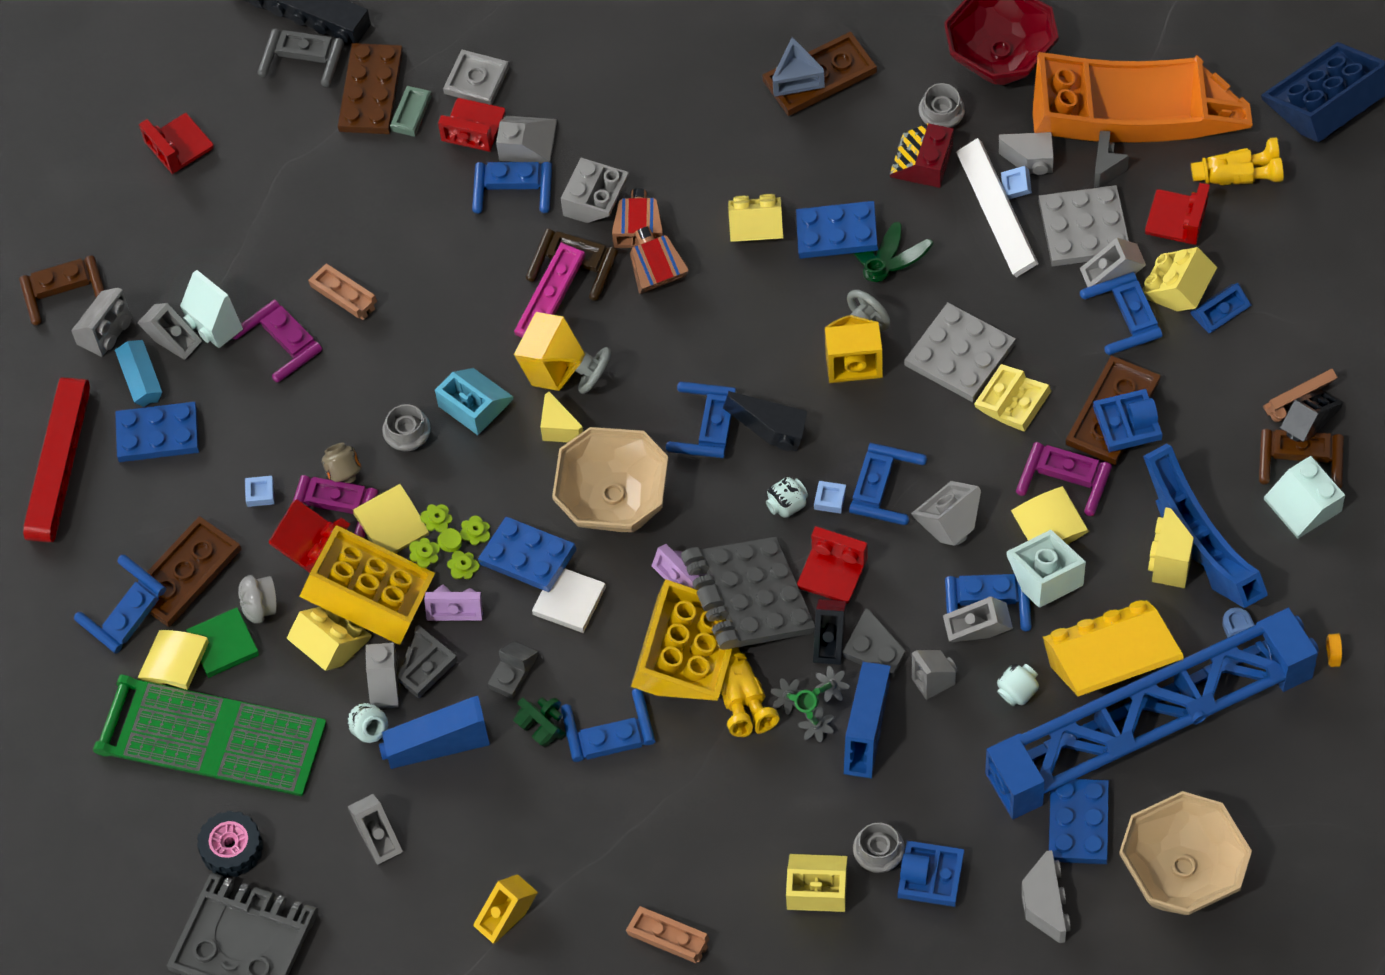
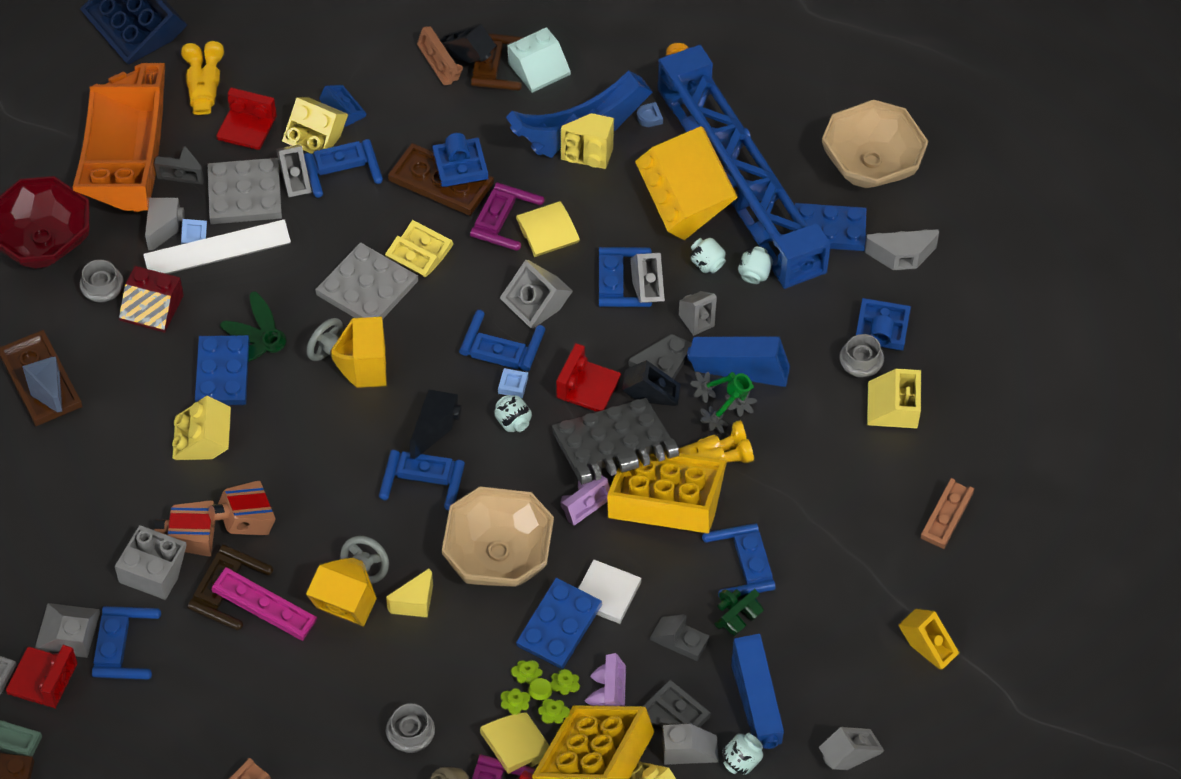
camera: 95 degrees left, 5 degrees down
(472, 399) = (383, 669): medium azure slope -> none
(1003, 728) = (755, 265): none -> light aqua head
(1046, 568) = (601, 224): light aqua slope -> none

